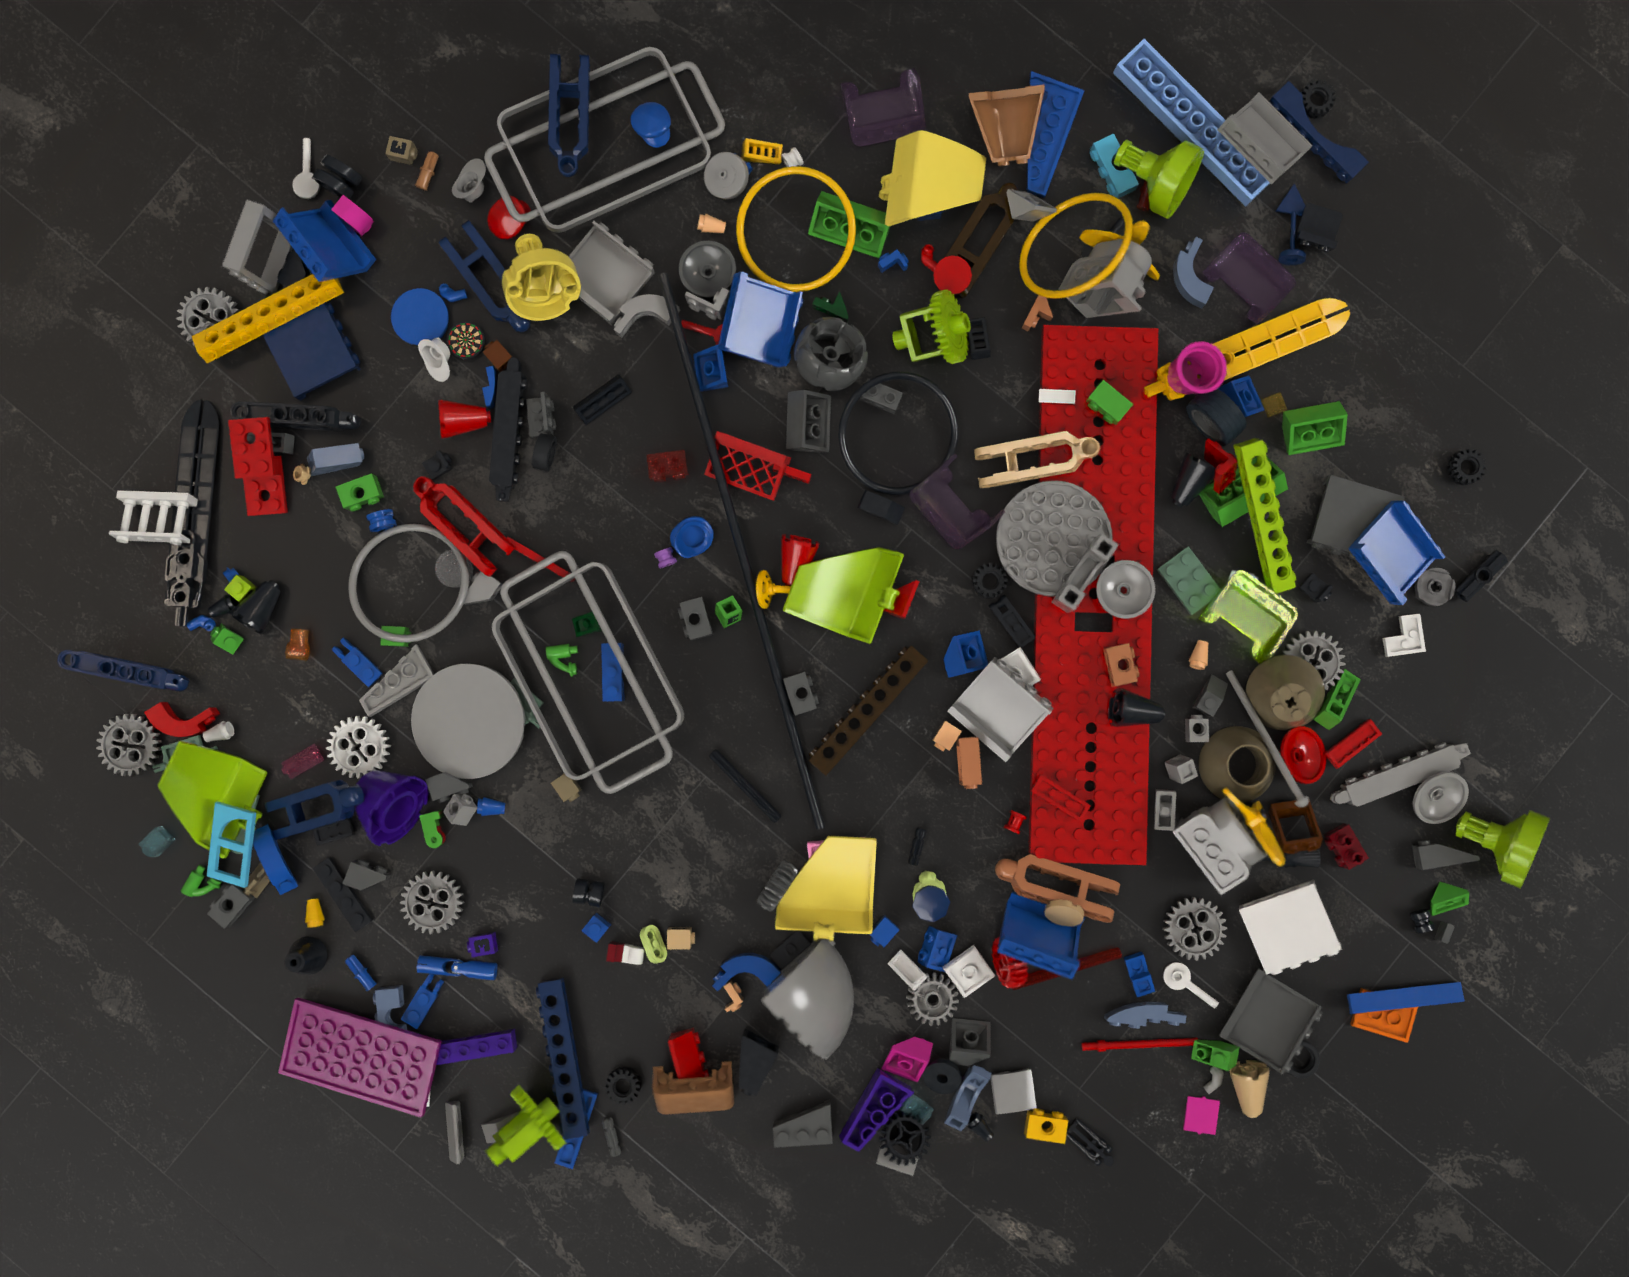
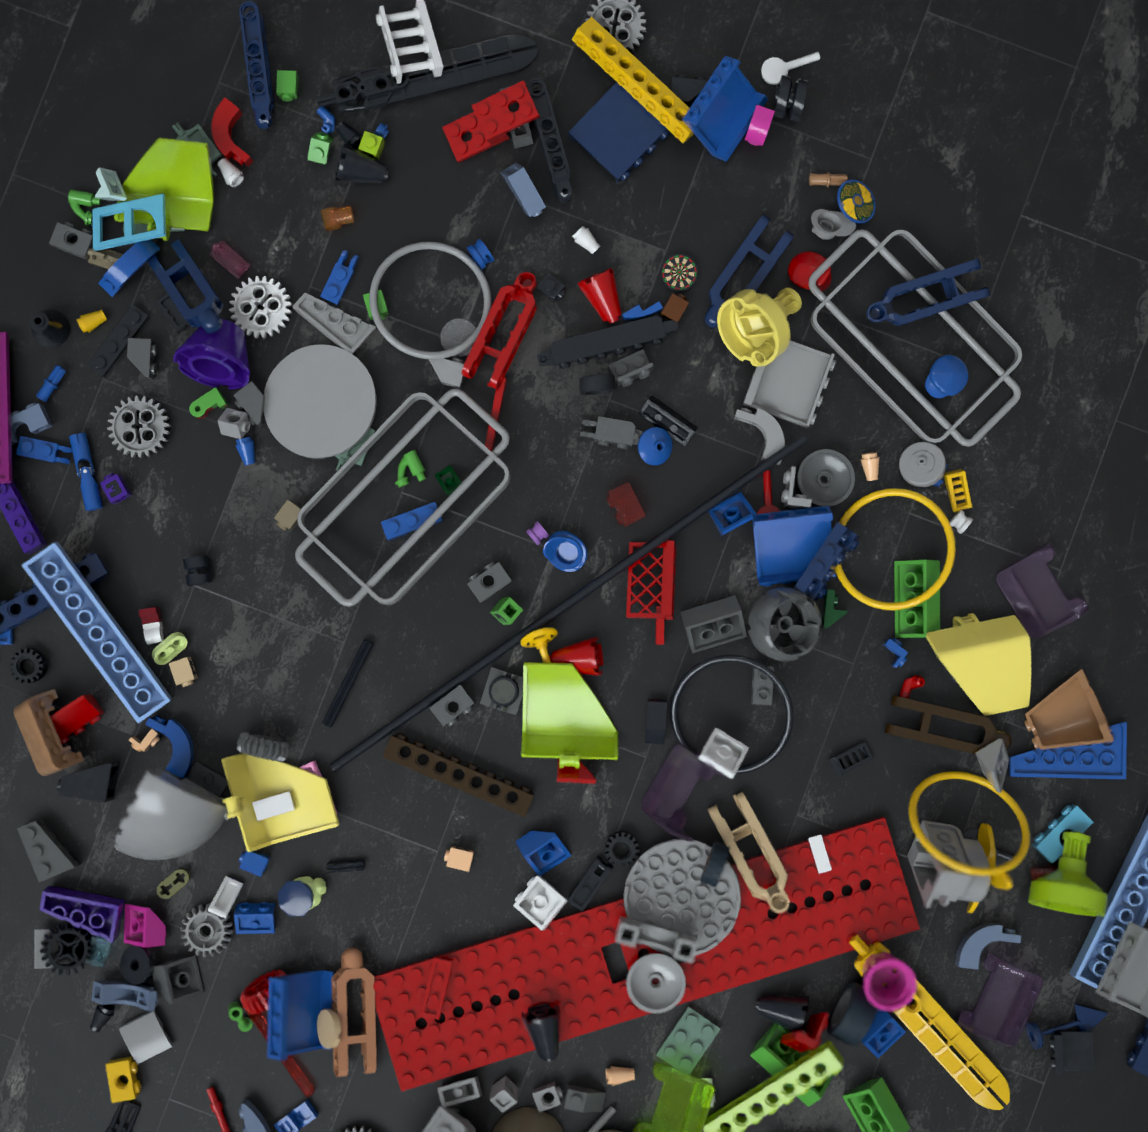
camera: 70 degrees right, 0 degrees up
(126, 762) = (174, 96): light grey gear -> none
(154, 649) = (287, 85): none -> bright green brick
(156, 842) = (108, 151): clear light blue brick -> none
(192, 851) = (110, 186): none -> light aqua slope
(242, 243) = (693, 37): light grey window -> none
(302, 474) = (499, 163): tan plate -> none
(348, 492) = (498, 213): bright green brick -> none
(401, 150) = (838, 148): dark tan brick -> none
(404, 416) = (586, 240): none -> white cone
(419, 316) = (686, 221): blue tile -> none
(435, 356) = (653, 249): white piece -> none
(451, 295) = (717, 244): blue arm -> none
(457, 151) = (856, 201): none -> shield
(595, 452) = (613, 432): none -> dark grey hinge
(596, 927) = (166, 589): blue brick -> none
(612, 1007) = (97, 631): none -> light blue brick
(621, 425) = (648, 446): none -> blue dish
(786, 296) = (826, 560): none -> dark blue bracket
(802, 640) = (502, 691): none -> piece
(836, 895) = (273, 805): none -> white tile
(882, 1014) = (171, 880): none -> olive beam
(931, 451) = (723, 753): none -> white plate
(949, 324) = (850, 728): lime piece -> none
(952, 274) = (901, 714): red tile -> none
(968, 971) = (244, 956): white plate -> none
(969, 762) = (441, 888): nougat window -> none
(1000, 708) = (502, 901): light grey panel -> none
(1015, 822) = (400, 951): red bush -> none
(1019, 996) = (236, 1013): none -> bright green plant
(1033, 494) = (715, 864): none -> black wheel
(1039, 308) = (900, 807): nougat slope -> none
(1109, 403) = (830, 906): bright green brick -> none
(1116, 675) = (588, 992): nougat brick -> none
(1274, 404) = (886, 1066): clear yellow tile -> none

